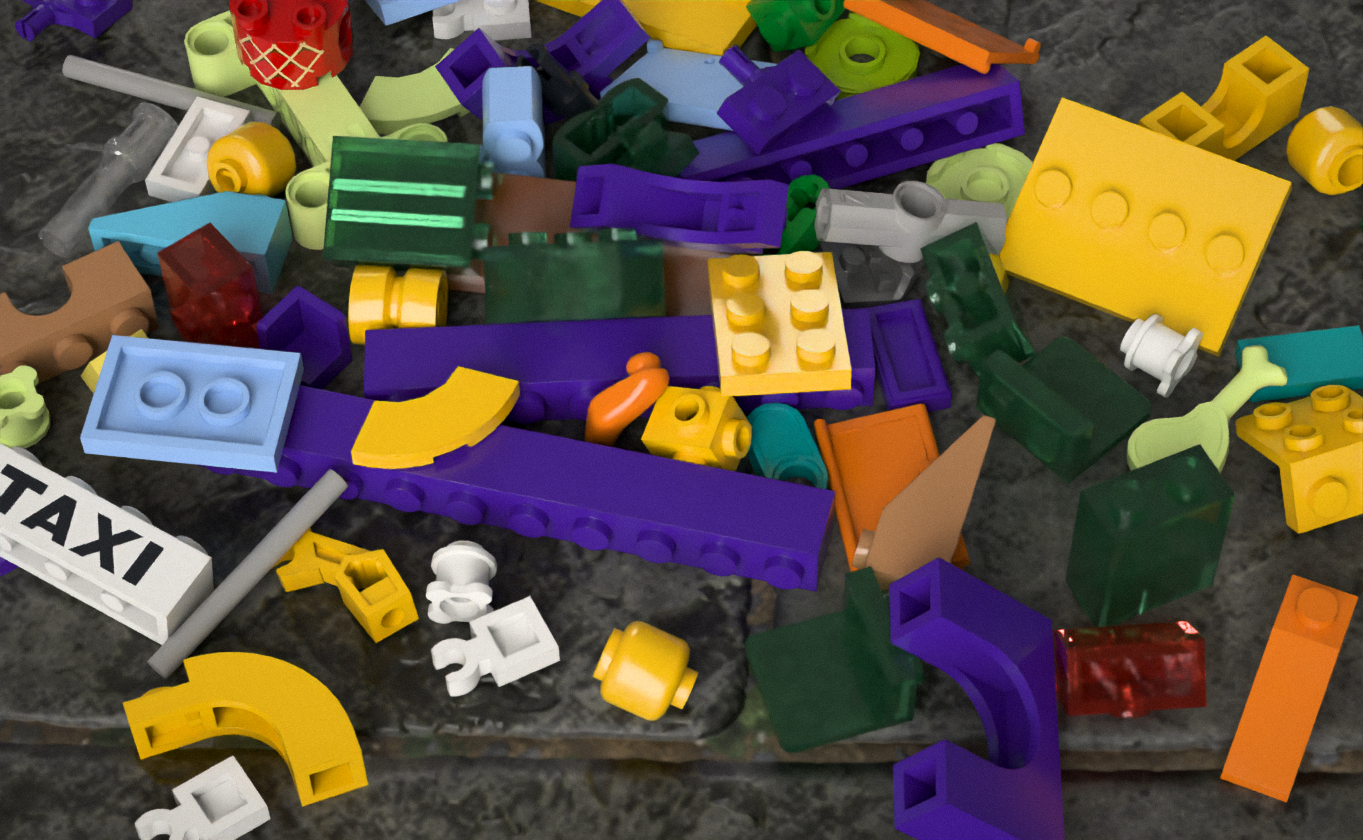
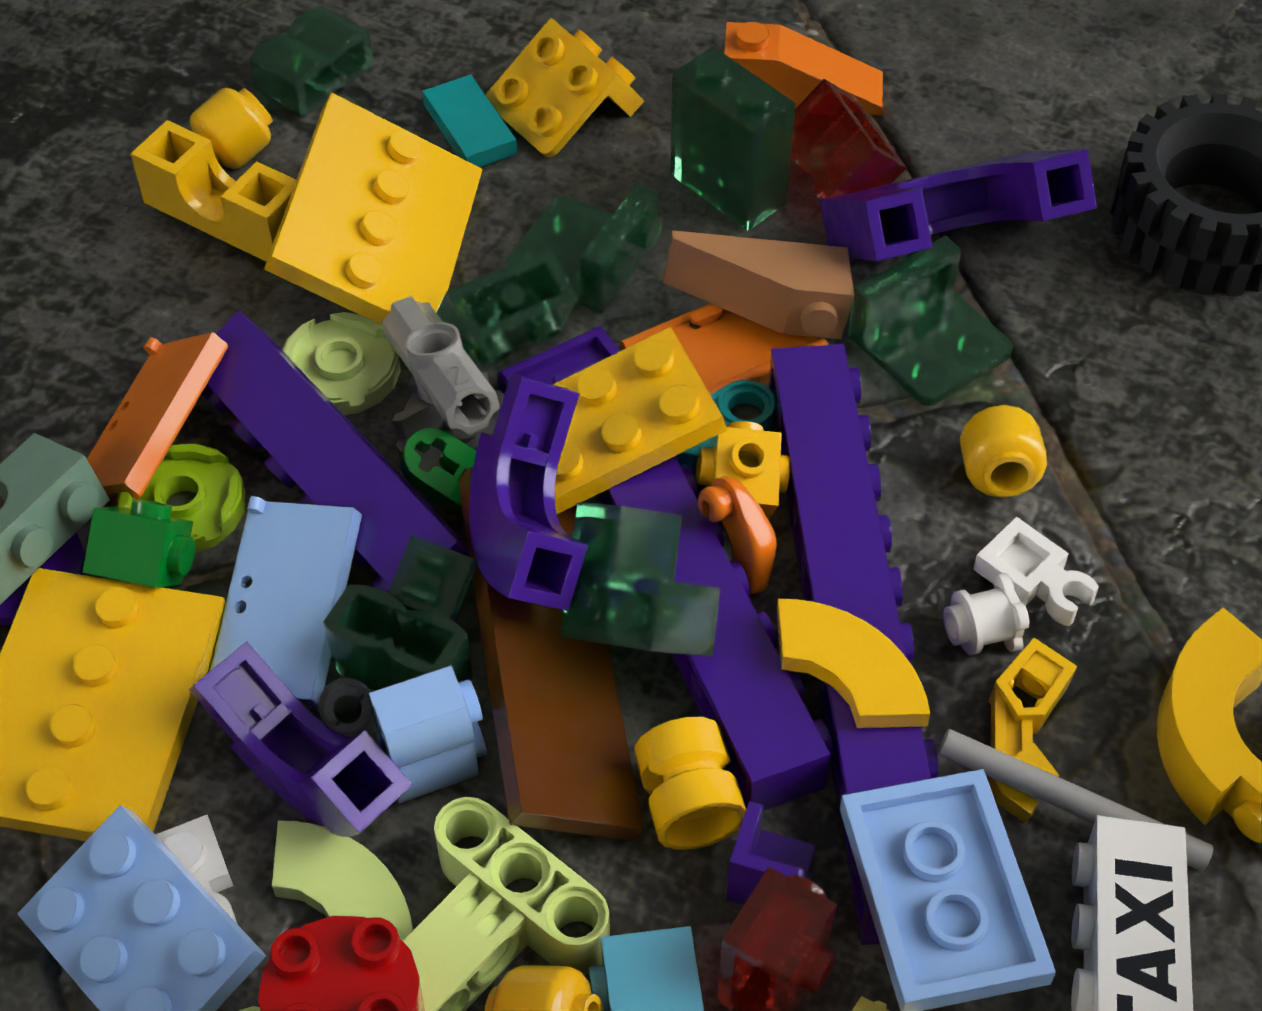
camera: 110 degrees left, 0 degrees up
(408, 204) = (586, 782): clear green brick -> none
(773, 97) = (327, 485): dark purple plate -> none
(1160, 351) = (503, 195): white brick -> none
(1207, 421) = (593, 168): yellowish green piece -> none

